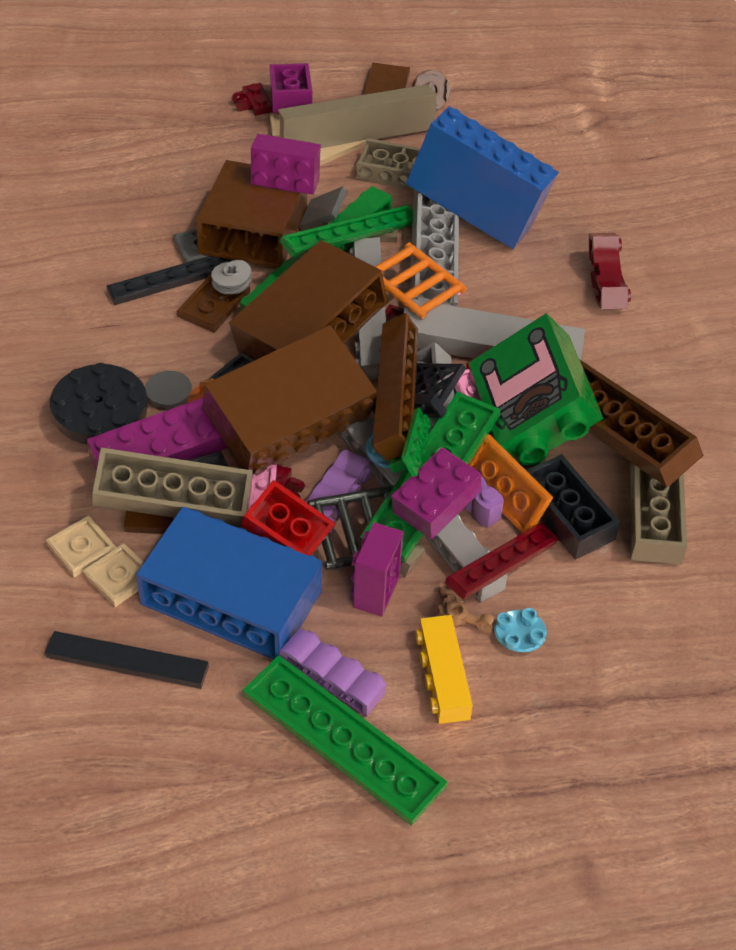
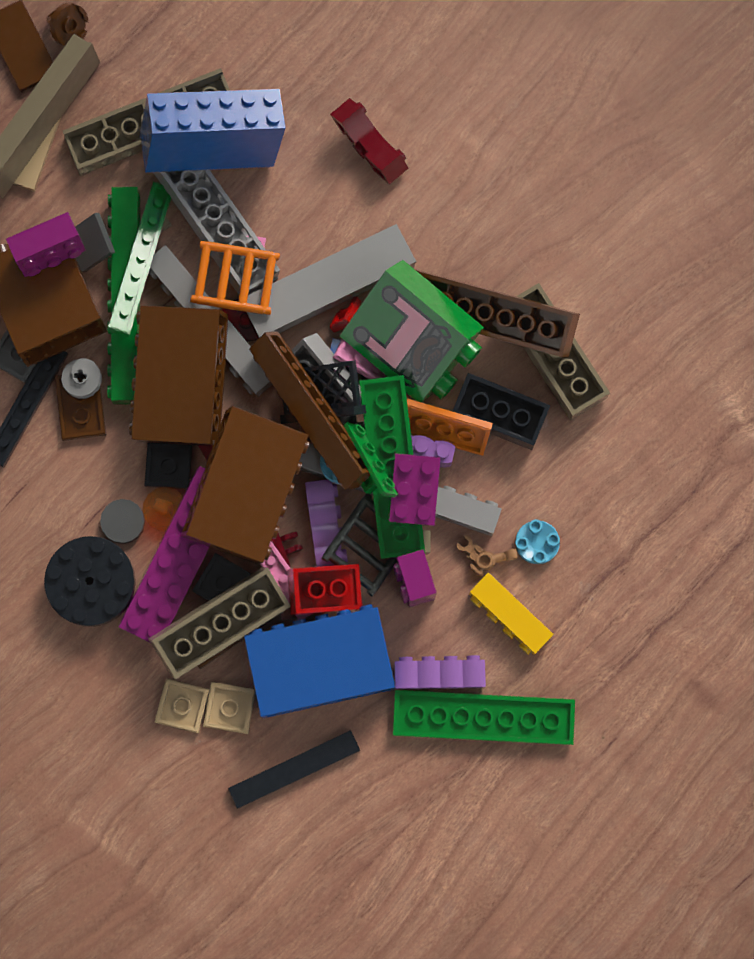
camera: 35 degrees left, 30 degrees up
(501, 561) = (491, 500): dark red tile -> none

